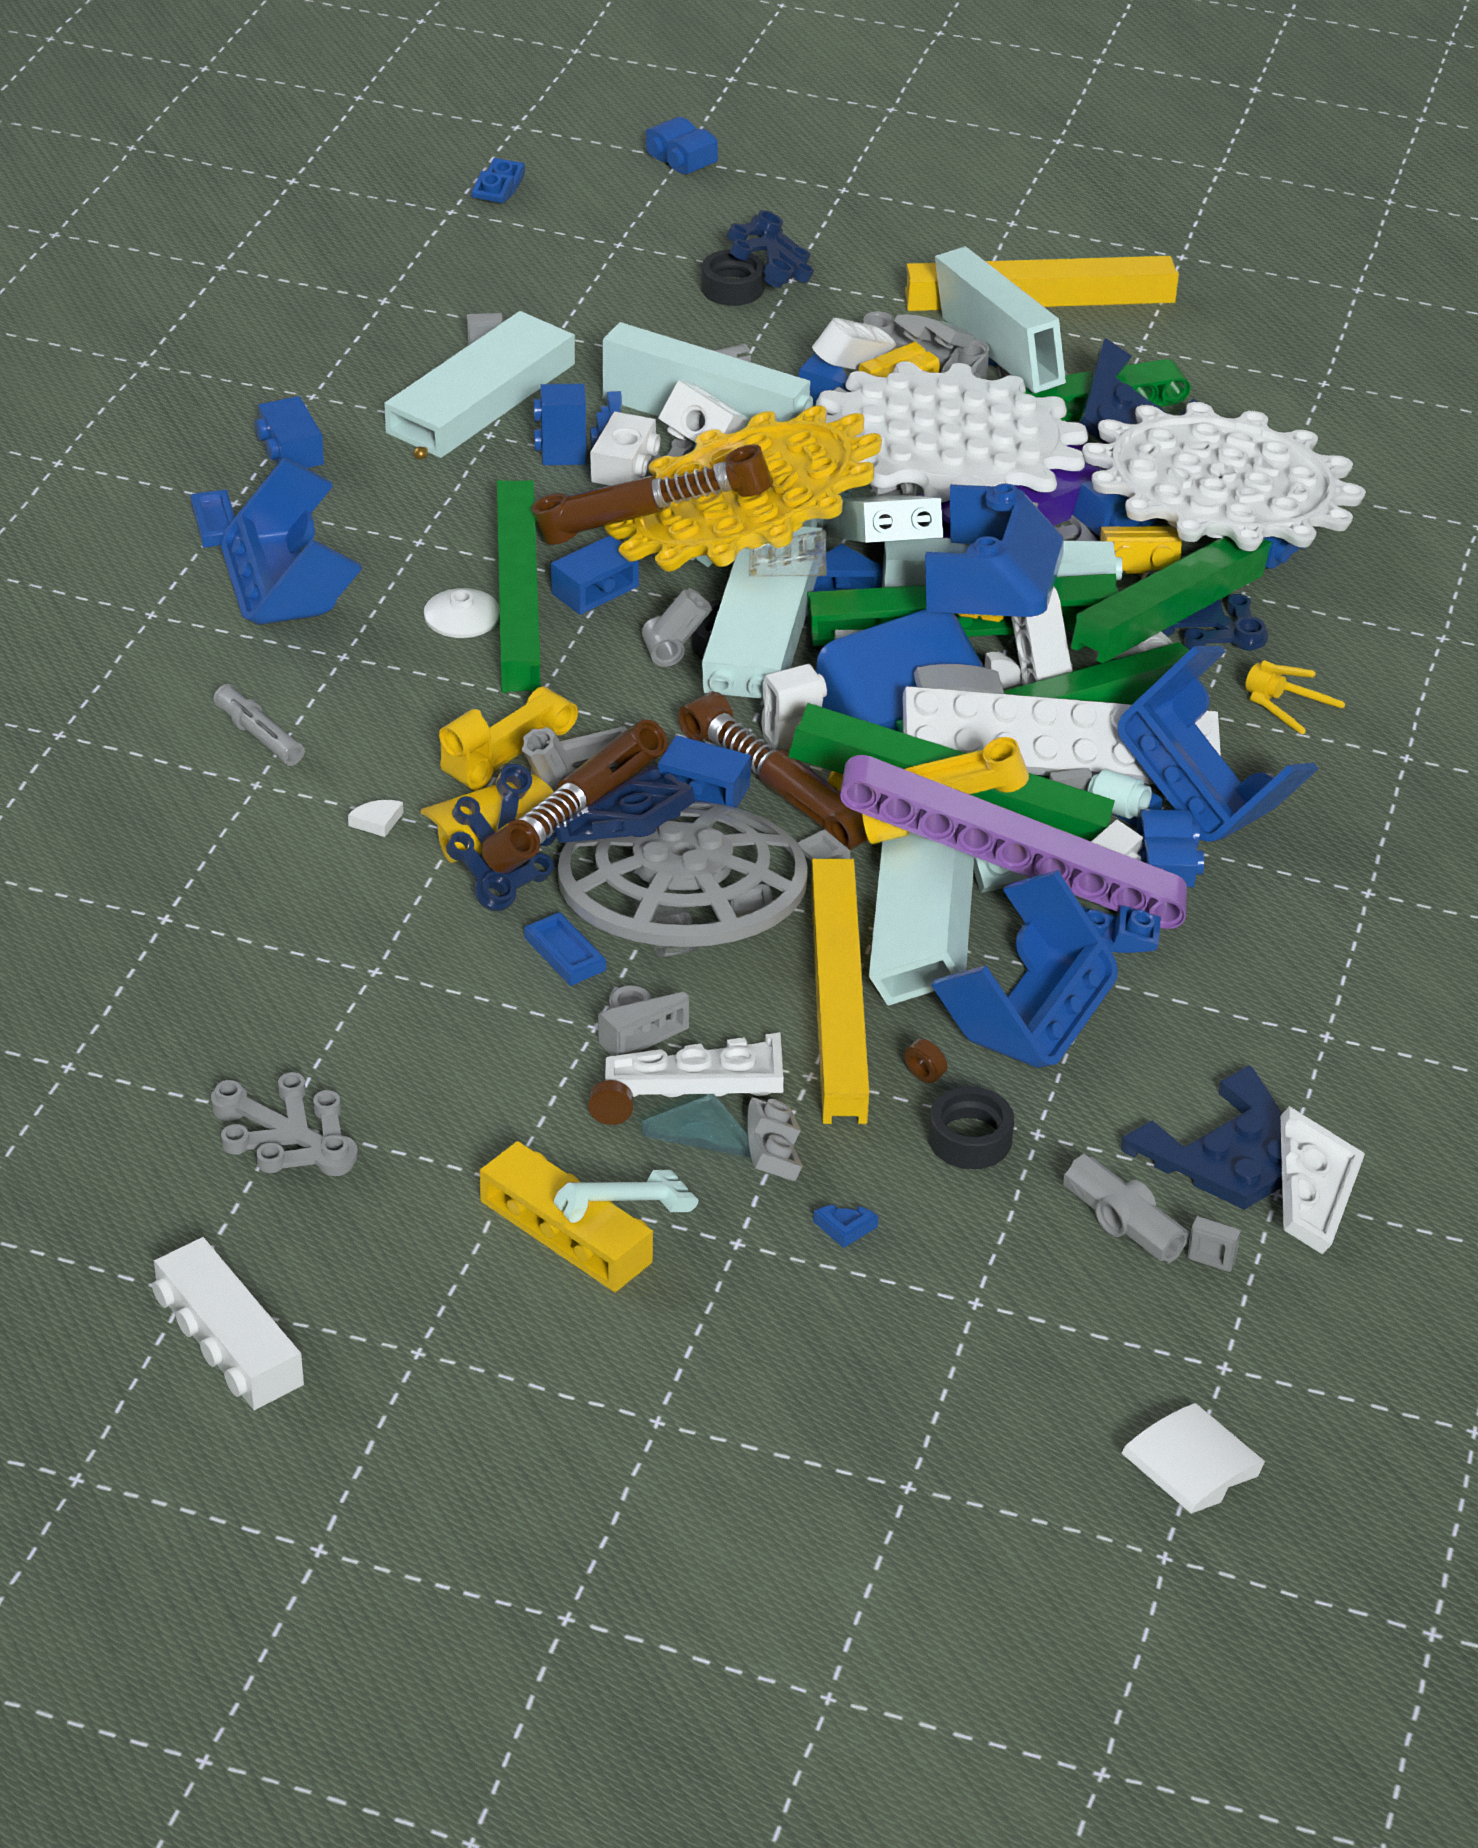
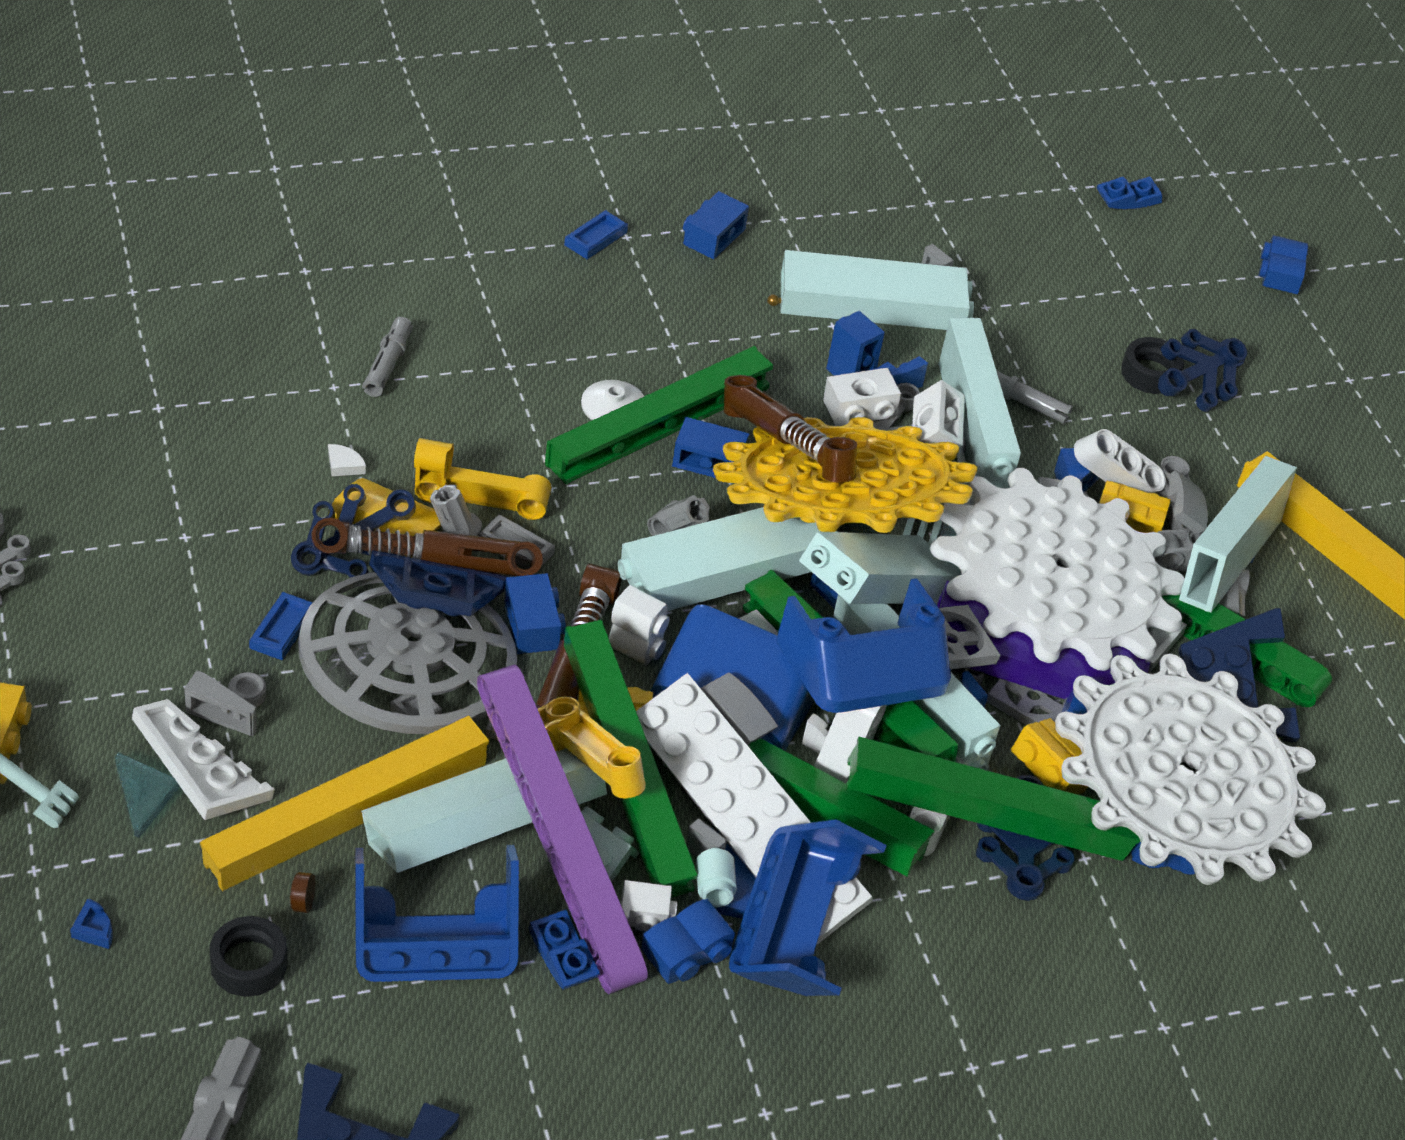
camera: 50 degrees right, 5 degrees up
(264, 546) = (575, 277): blue windscreen -> none
(610, 1102) = (122, 724): reddish brown tile -> none
(772, 1138) = (148, 837): light grey slope -> none
(801, 557) = (784, 550): clear slope -> none
(1266, 682) = (969, 925): yellow plant -> none

